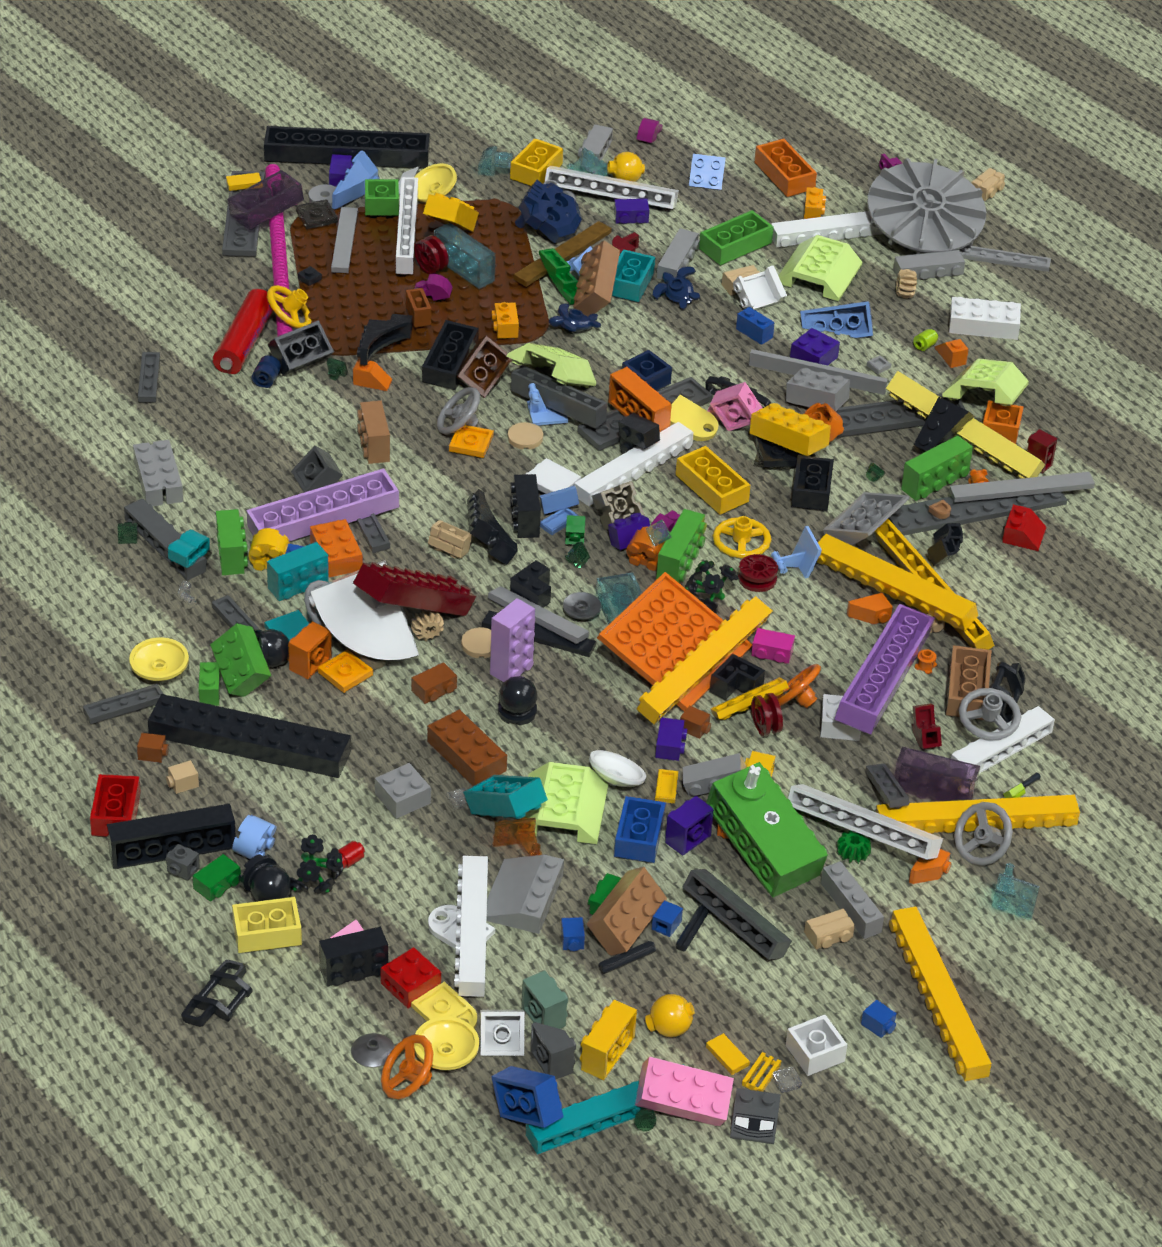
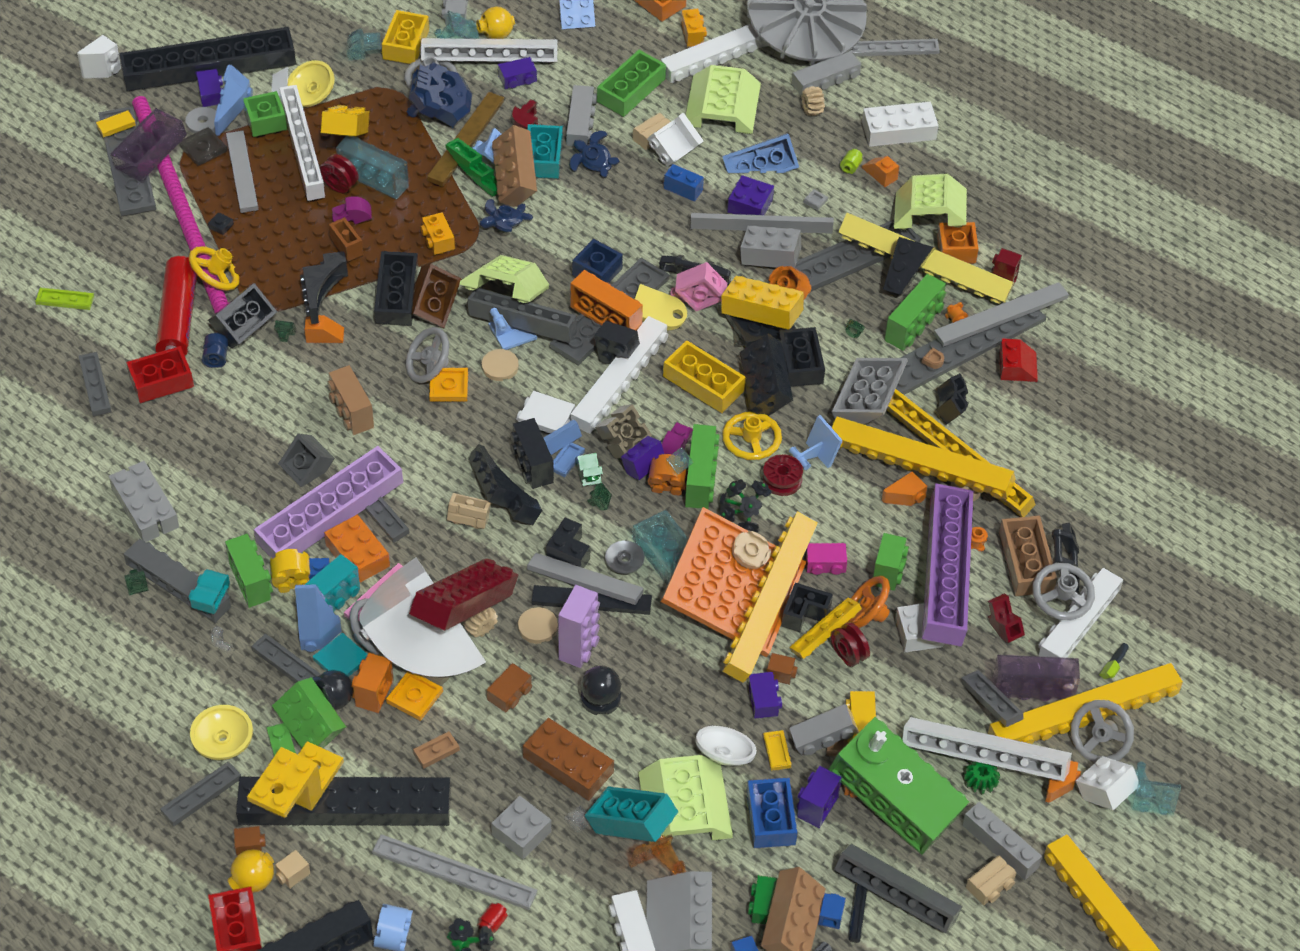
camera: 15 degrees left, 10 degrees up
(147, 308) = (64, 298): none -> lime tile
(148, 766) = (251, 869): none -> yellow brick
(207, 696) = (295, 779): none -> yellow bracket
(209, 379) = (160, 374): none -> red brick
(247, 128) = (99, 59): none -> white slope
(274, 587) = (315, 618): none -> medium blue wedge
(329, 813) = (455, 872): none -> light grey tile
(348, 716) = (436, 750): none -> medium nougat plate
(700, 618) = (751, 550): none -> tan tile
(771, 489) = (766, 375): none -> black brick
(833, 657) = (891, 559): none -> bright green brick
(971, 874) = (1107, 783): none -> white brick

